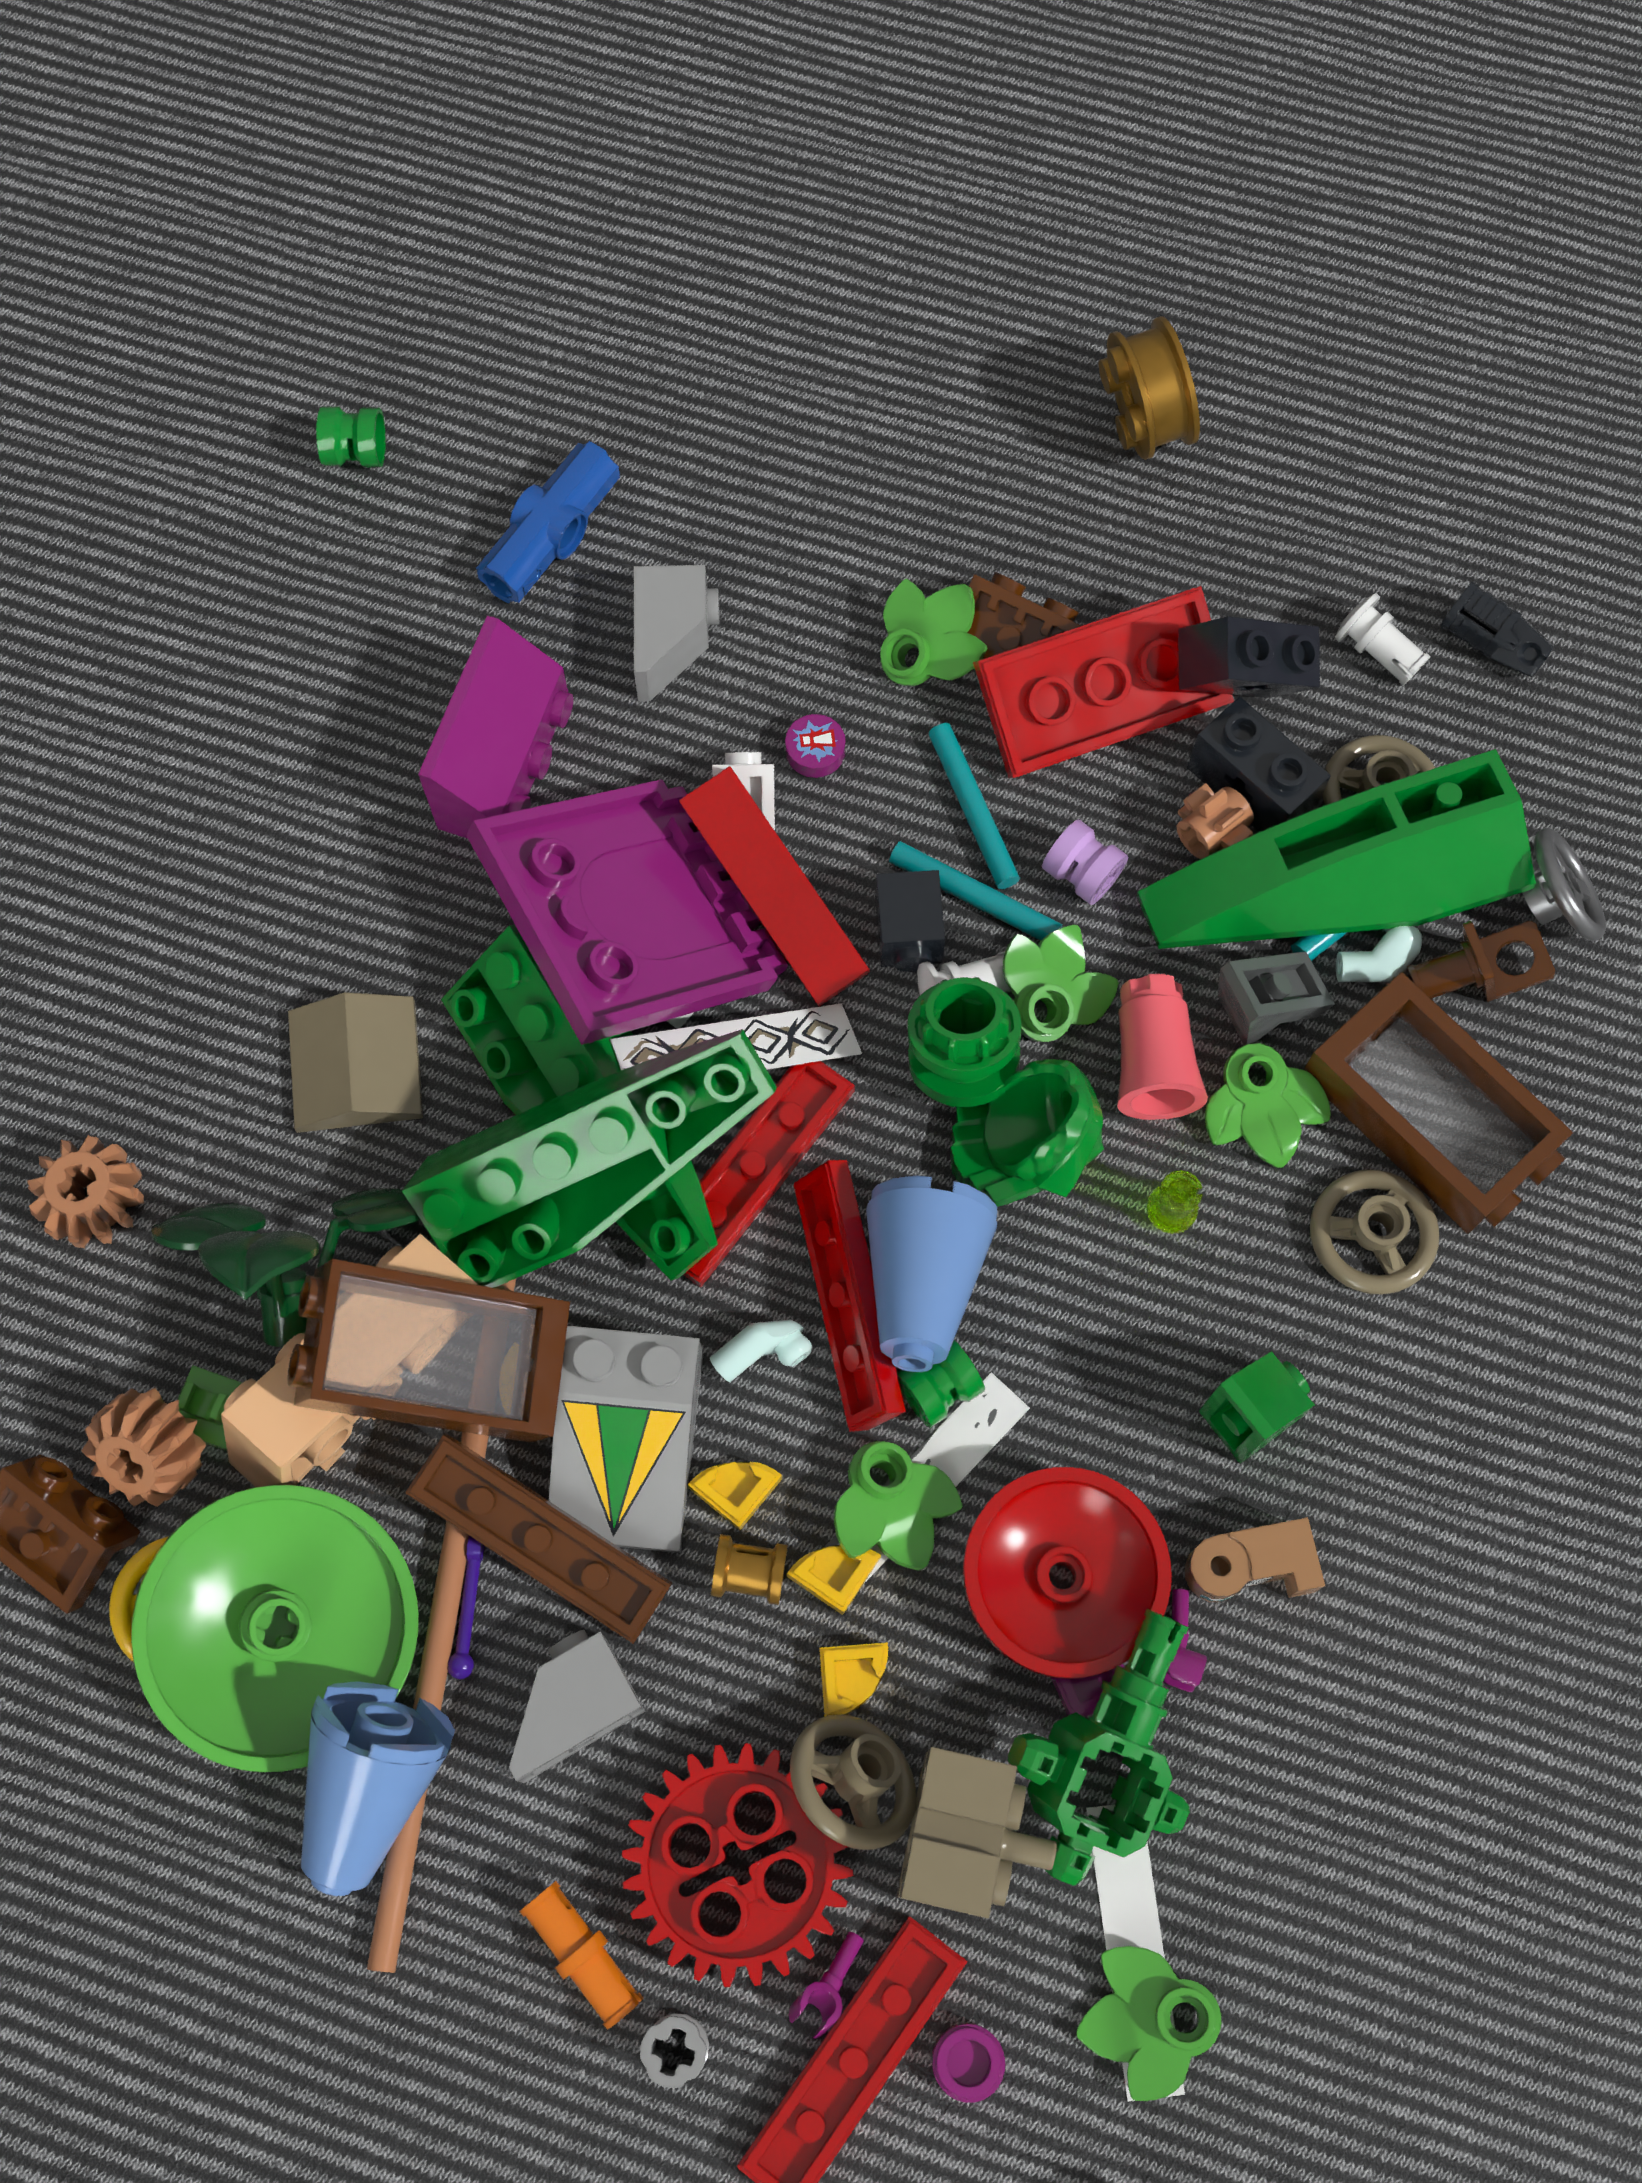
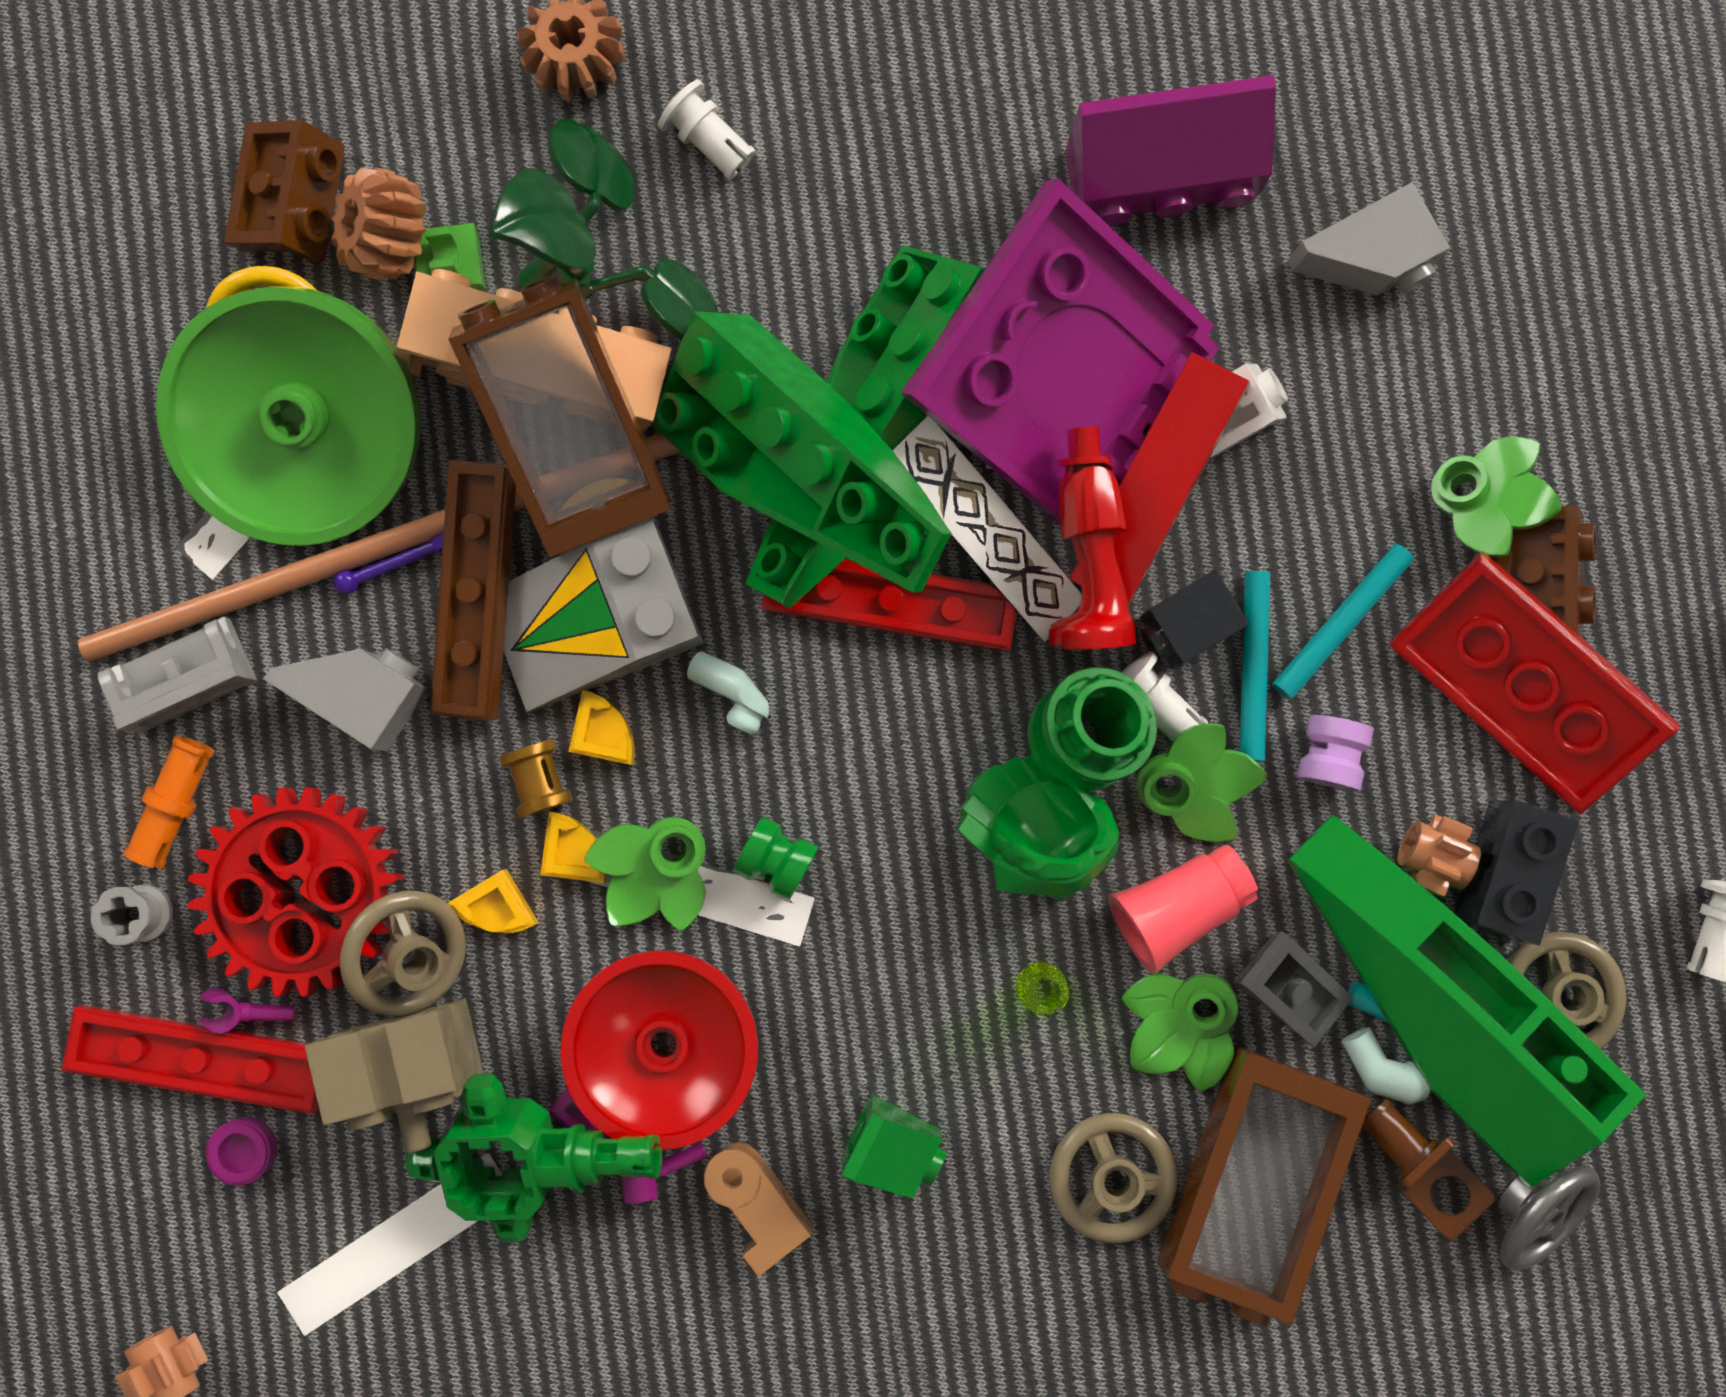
camera: 60 degrees right, 15 degrees up
(237, 1113) = (706, 130): none -> white pin
(354, 1061) = (808, 204): dark tan slope -> none
(365, 1779) = (211, 556): medium blue cone -> none
(461, 1881) = (176, 677): none -> light grey hinge
(548, 522) = (1424, 77): blue piece -> none
(776, 951) = (1091, 518): none -> red piece
(815, 745) = (1325, 446): magenta tile -> none
(847, 1295) = (812, 742): red tile -> none
(925, 1264) = (860, 799): medium blue cone -> none
(1137, 2026) = (335, 1273): bright green plate -> none
(1249, 657) = (1626, 811): black brick -> none

